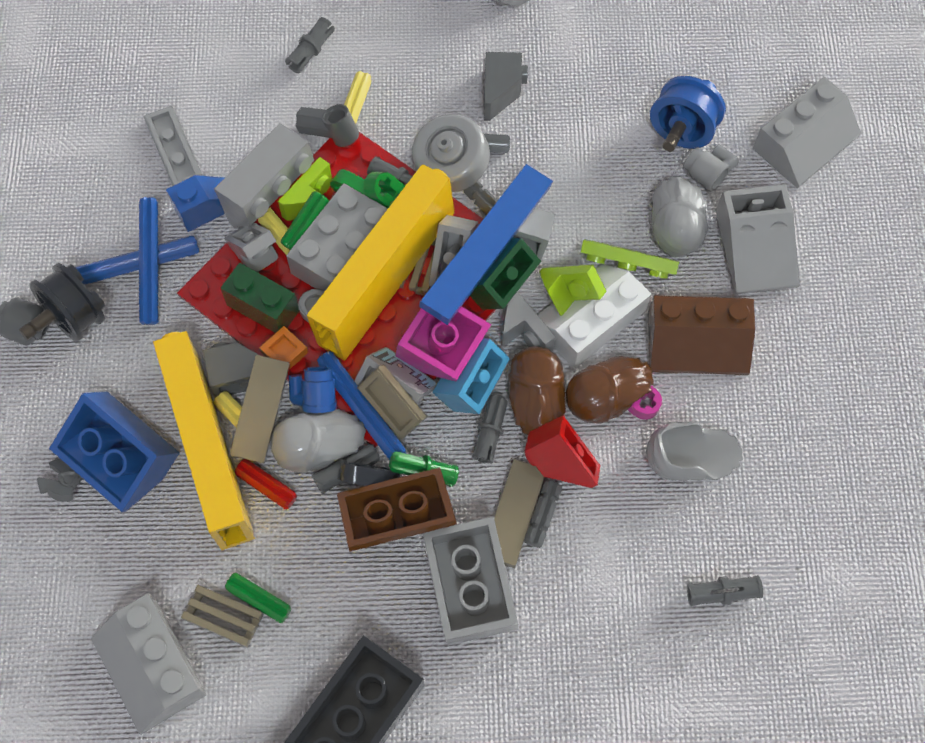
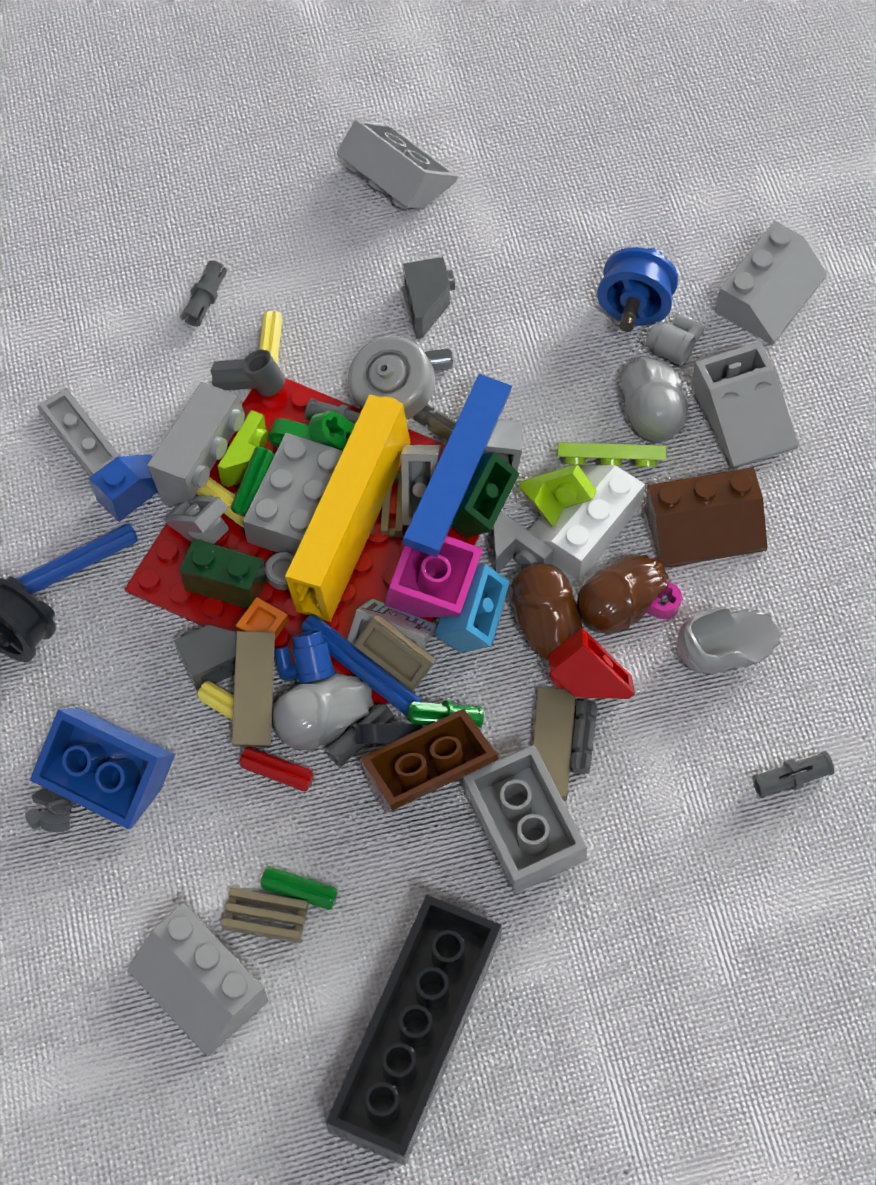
camera: 10 degrees left, 5 degrees down
(148, 261) = (87, 559): blue axle -> none
(203, 441) = (201, 734): yellow brick -> none
(490, 429) = (505, 662): dark grey axle -> none

